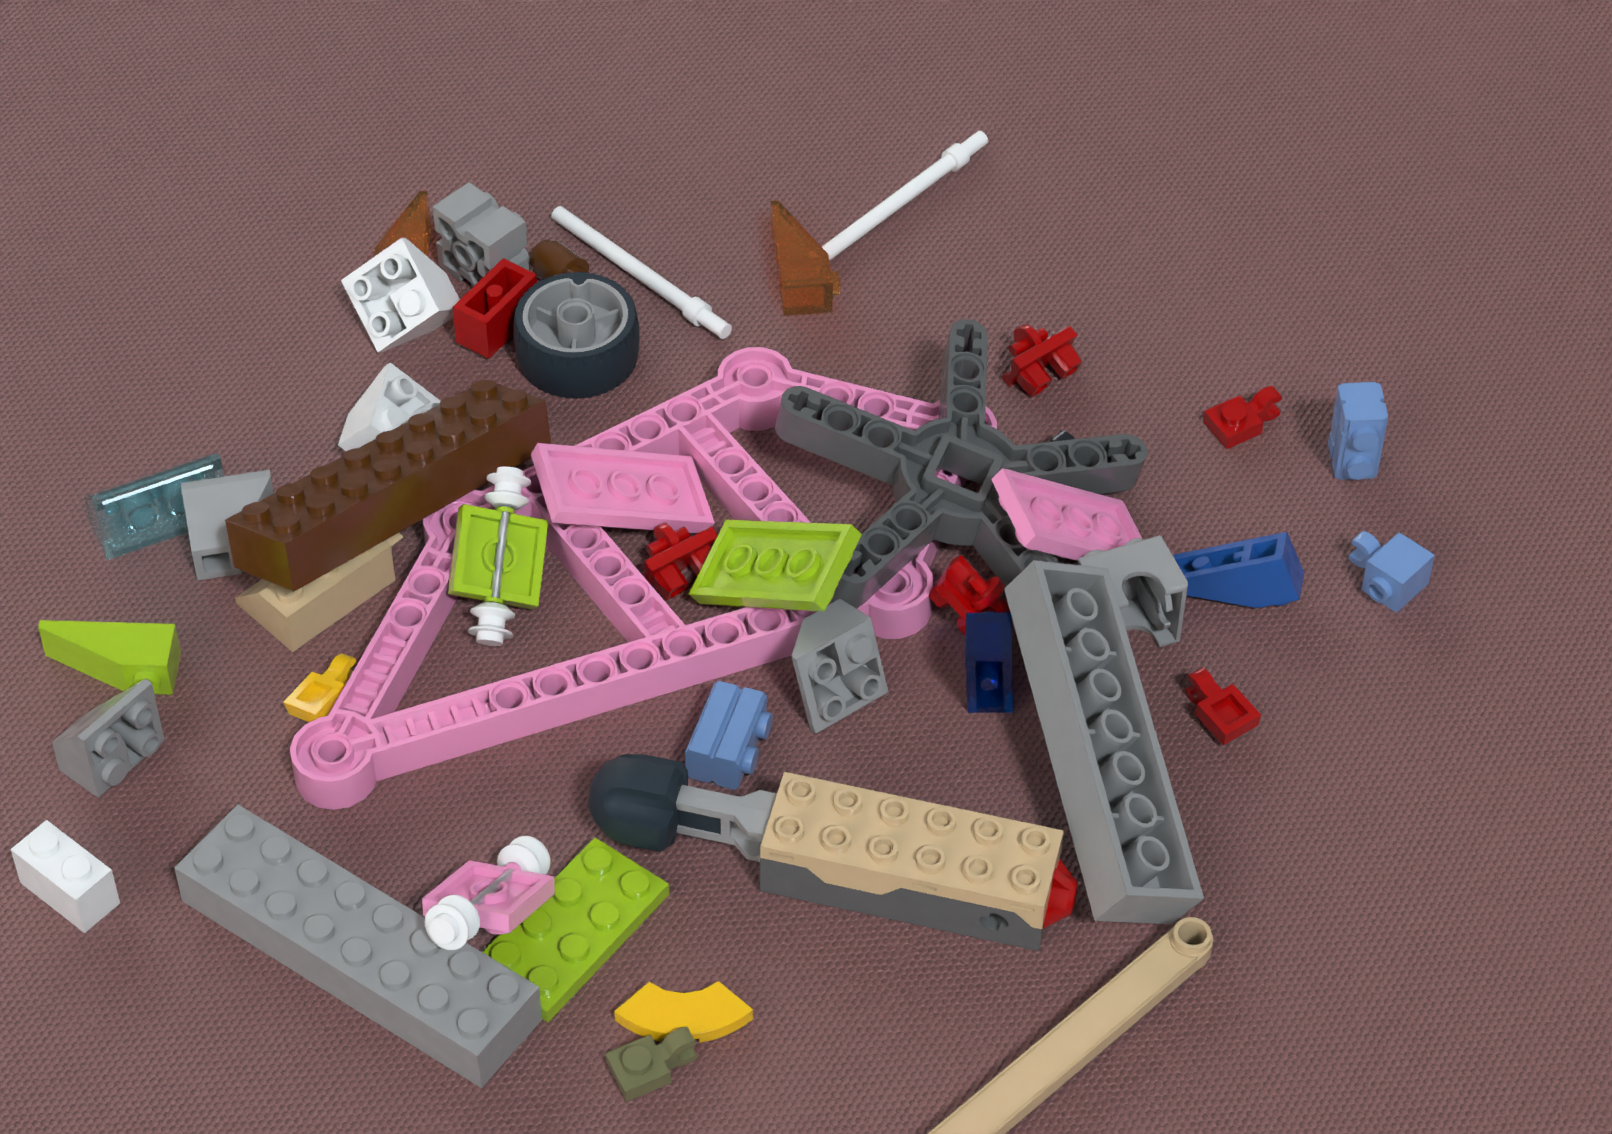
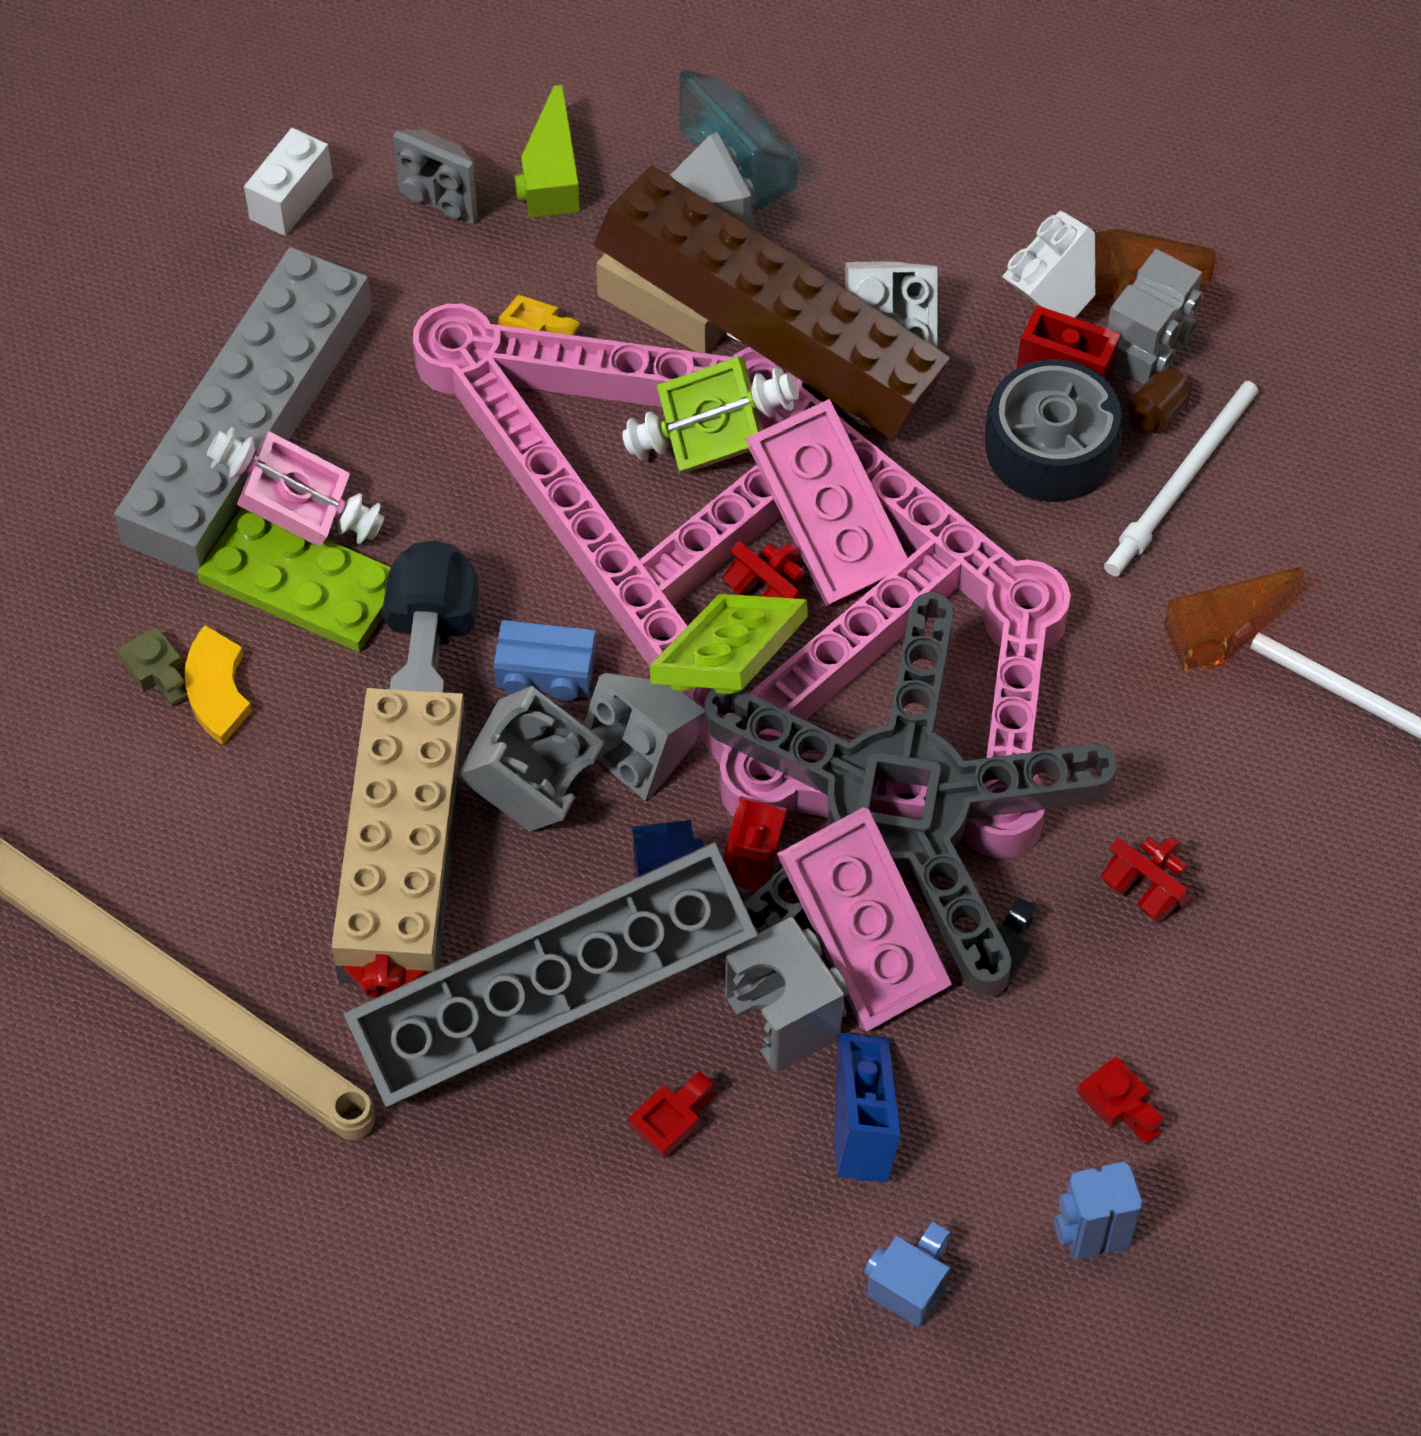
camera: 80 degrees right, 10 degrees up
(843, 745) = (529, 758): none -> light grey piece

